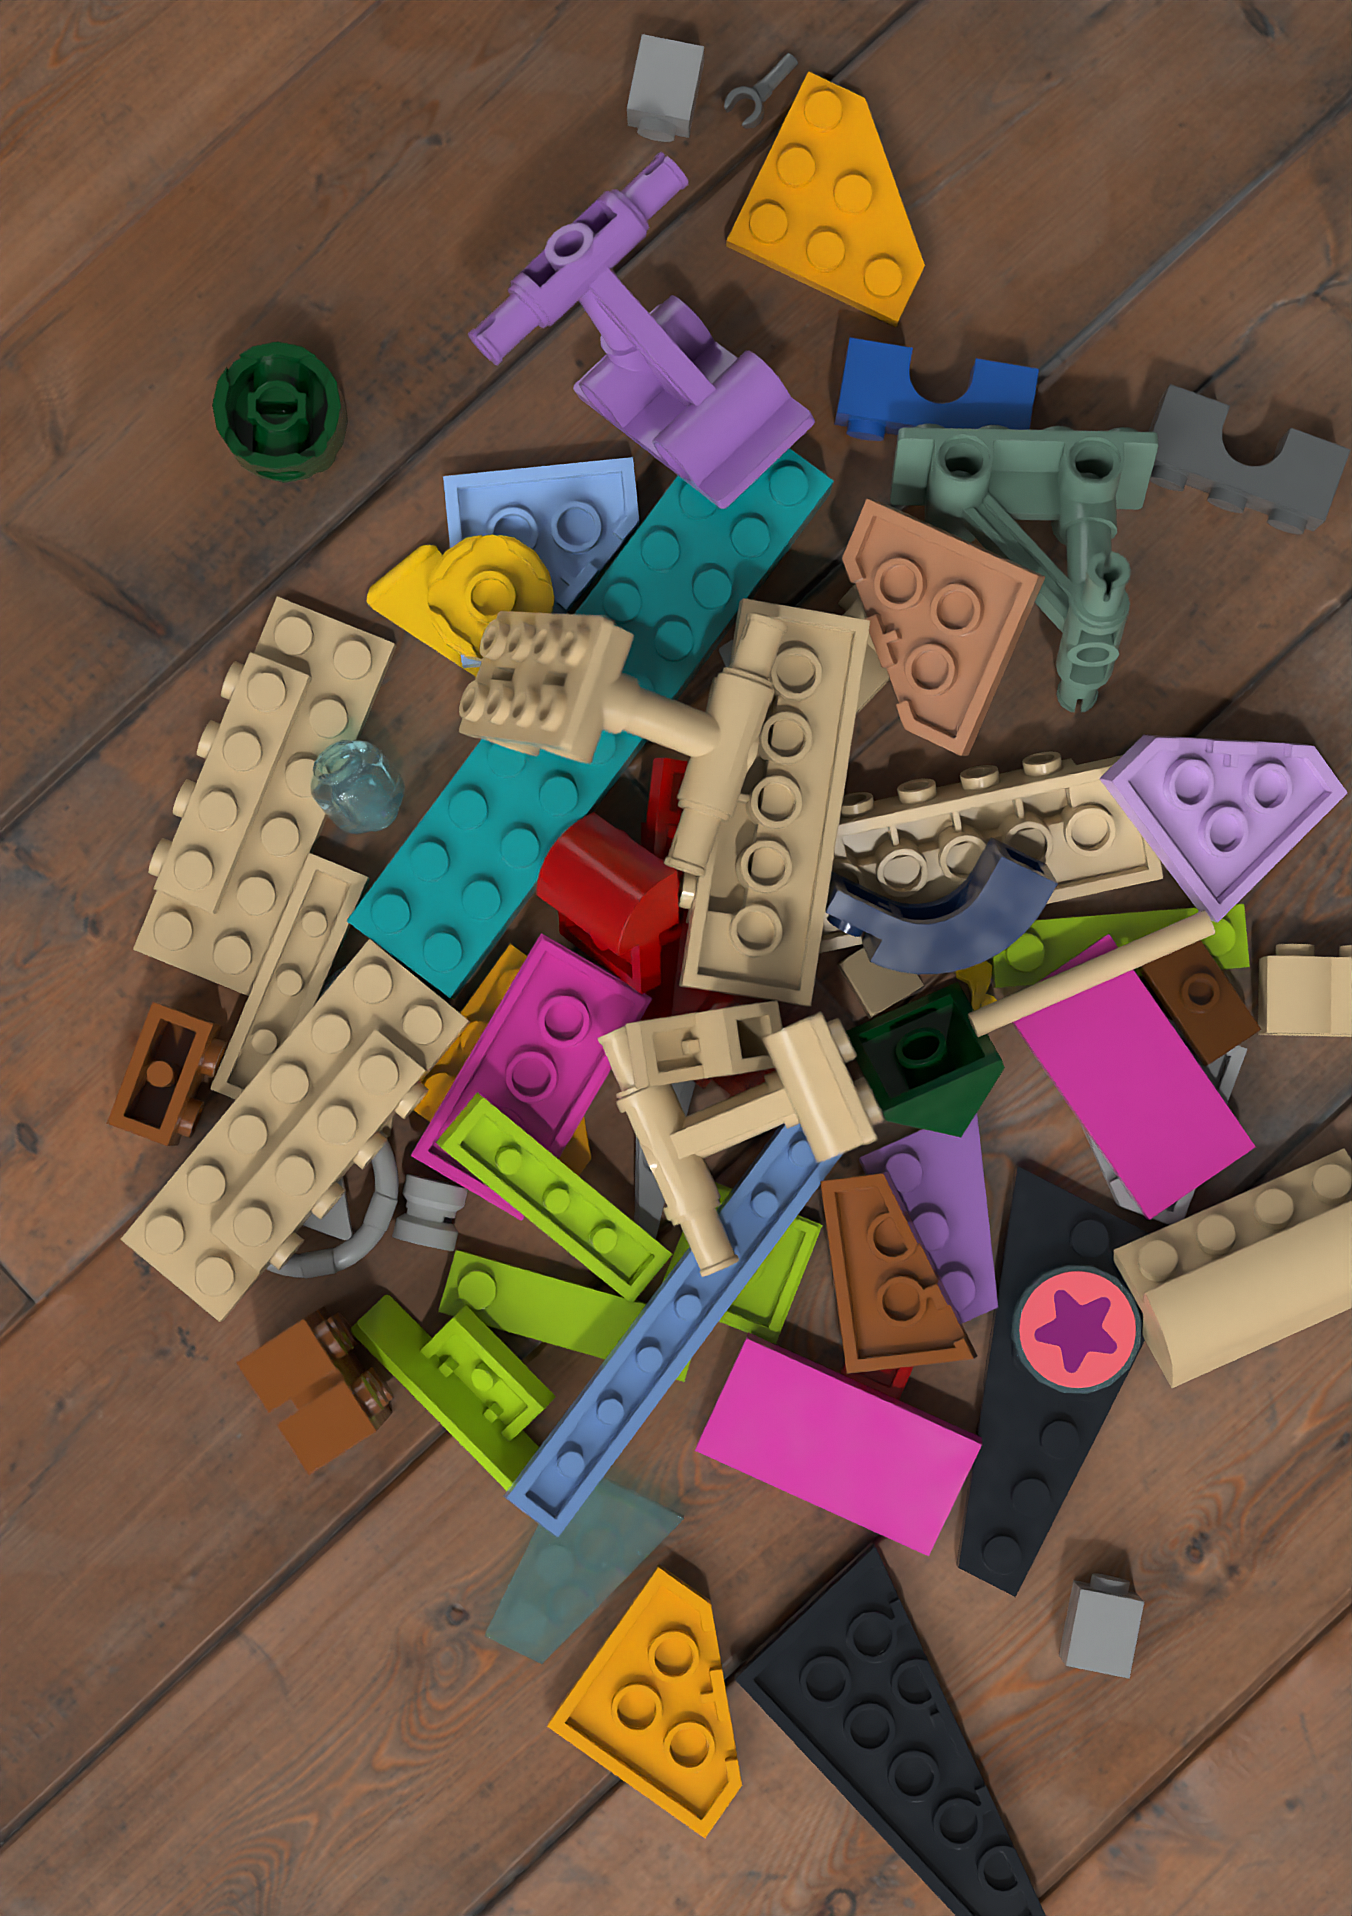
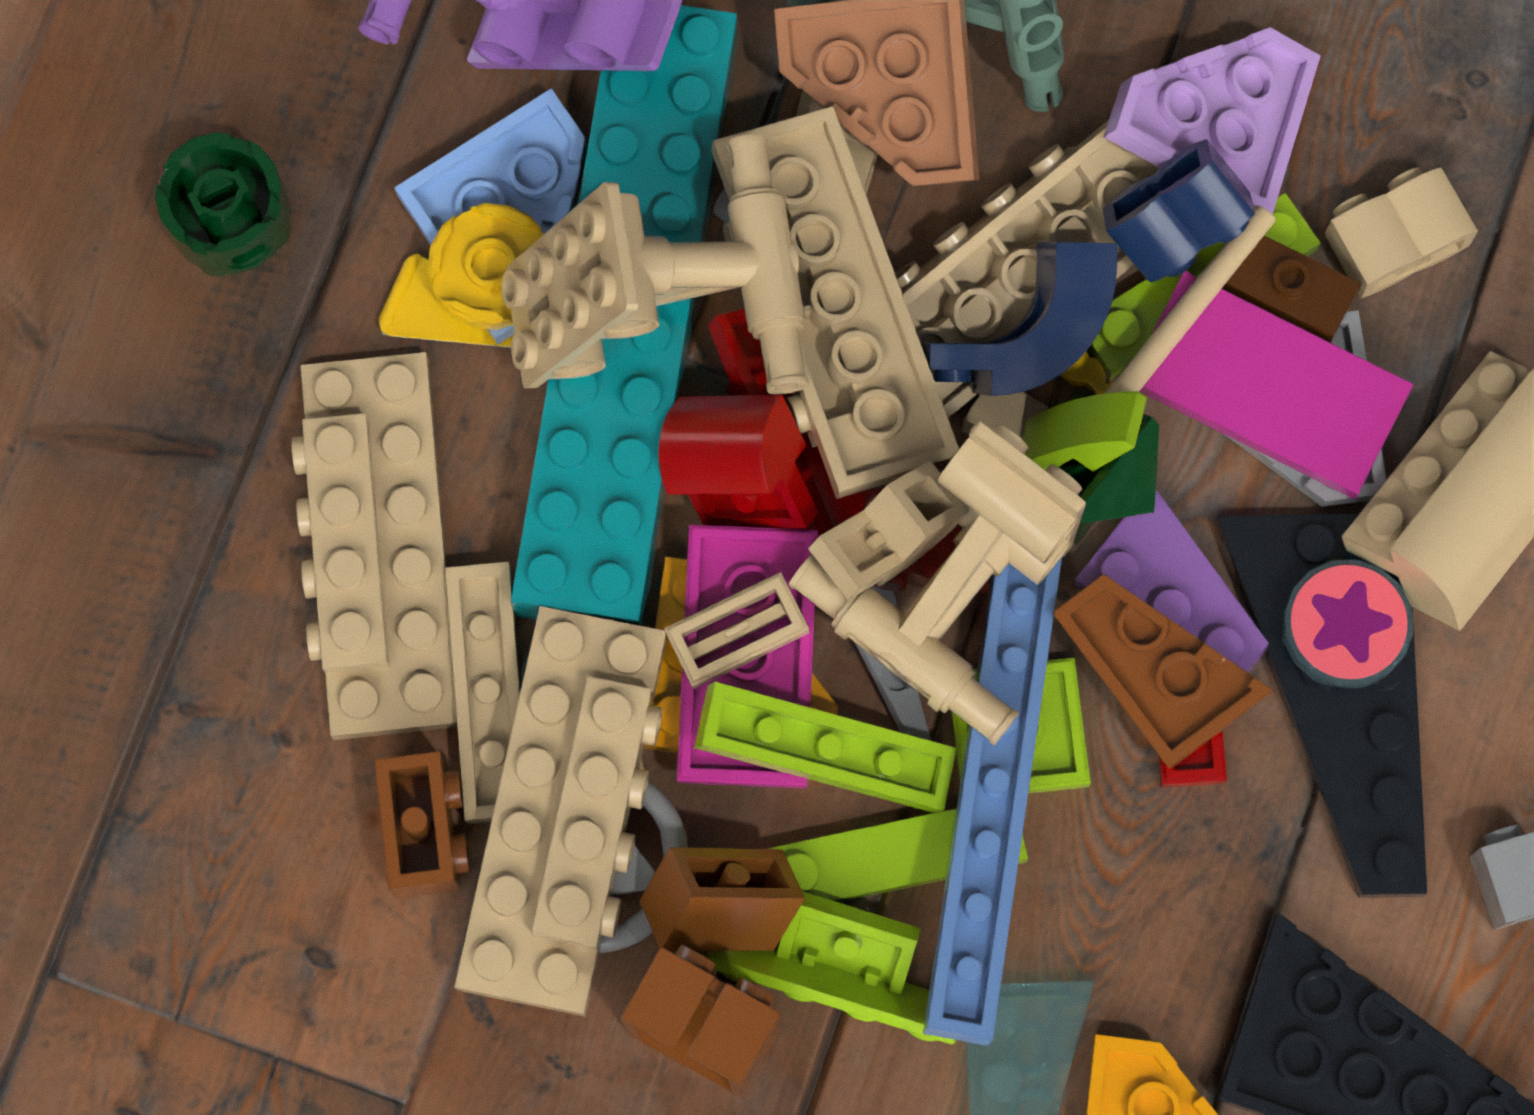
camera: 25 degrees left, 10 degrees down
(357, 786) = (458, 487): clear light blue head -> none
(392, 1284) = (721, 899): none -> dark orange brick
(430, 1212) = (719, 819): light grey wheel -> none
(586, 1055) = (748, 653): none -> tan tile
(838, 1444) = (1195, 841): dark pink tile -> none
(935, 1036) = (1085, 429): none -> lime slope
(1130, 881) = (1179, 211): none -> dark blue brick

